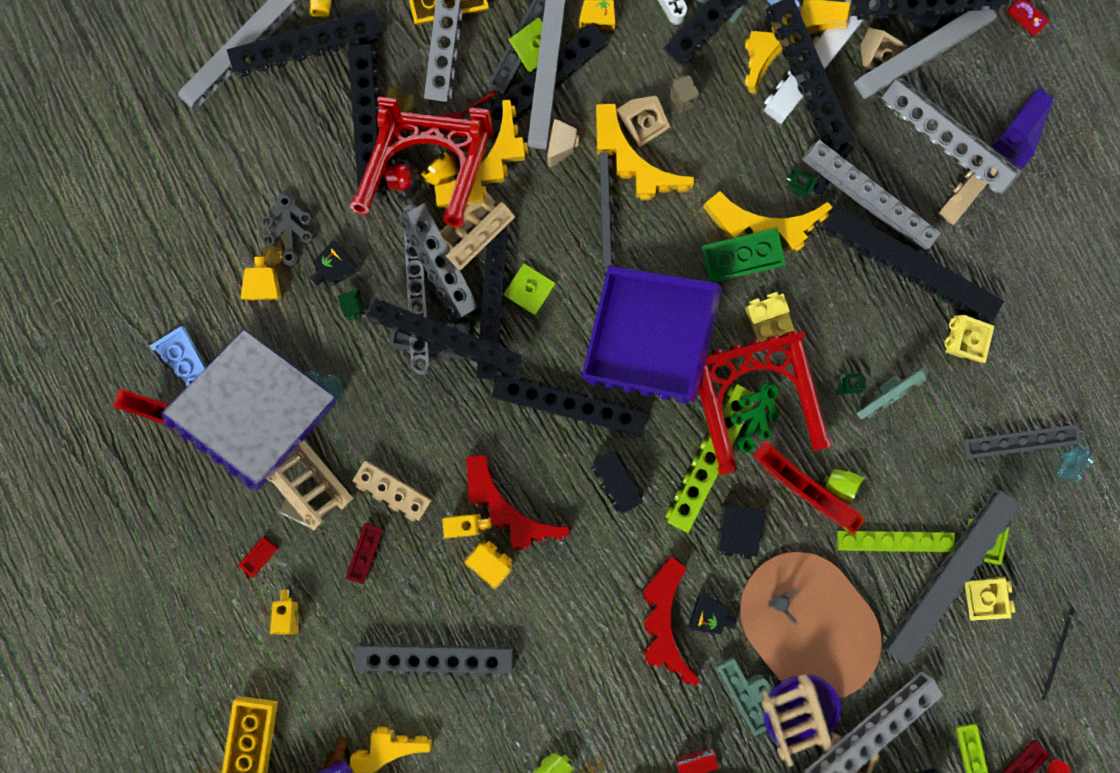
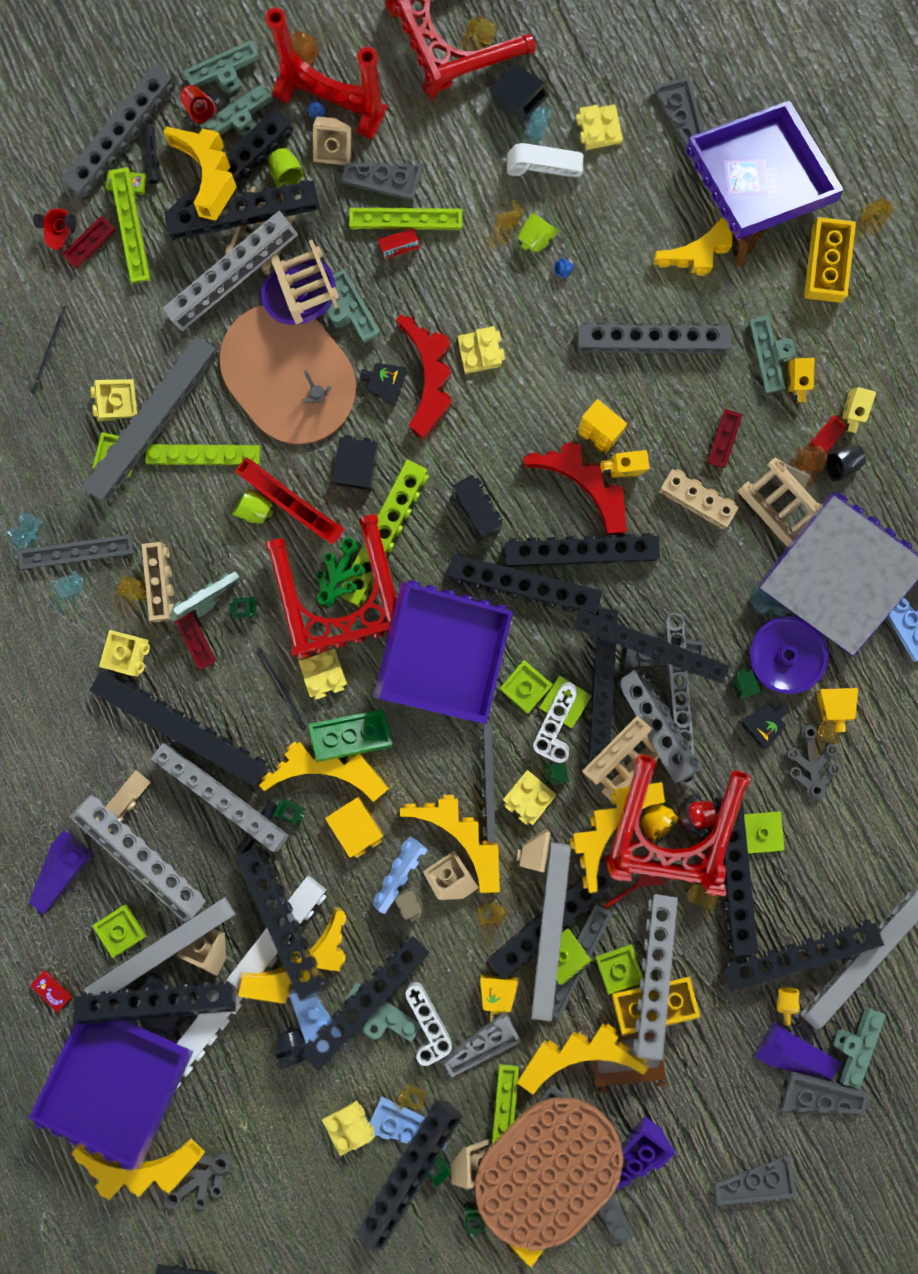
camera: 175 degrees left, 0 degrees up
(224, 589) = (861, 401): none -> light yellow torso
(238, 530) = (849, 460): none -> black helmet
(277, 531) = (811, 458): none -> clear orange brick
(308, 332) = (788, 655): none -> dark purple dish
(314, 641) = (770, 353): none -> sand green plate
(337, 162) = (764, 832): none -> lime plate
(442, 436) = (648, 540): none -> black brick
(480, 34) = (619, 969): none -> lime plate
(526, 735) = (563, 267): none -> blue plate
(539, 218) = (556, 773): none -> dark green window
(539, 270) = (557, 719): none -> white beam
(566, 195) = (529, 798): none -> light yellow plate
(568, 304) = (525, 686): none -> lime plate
(596, 87) = (499, 913): none -> clear yellow bracket
(611, 648) = (481, 350): none -> light yellow plate
(687, 133) = (397, 877): none -> light blue wing
(736, 167) = (355, 827): none -> yellow brick
(811, 305) = (281, 687): none -> black piece
(897, 350) = (195, 641): none -> dark red plate
(939, 410) = (157, 581): none -> tan brick
(962, 403) = (132, 589): none -> clear yellow bracket
(964, 71) = (119, 931): none -> lime plate
(1028, 407) = (68, 585): none -> clear light blue bracket

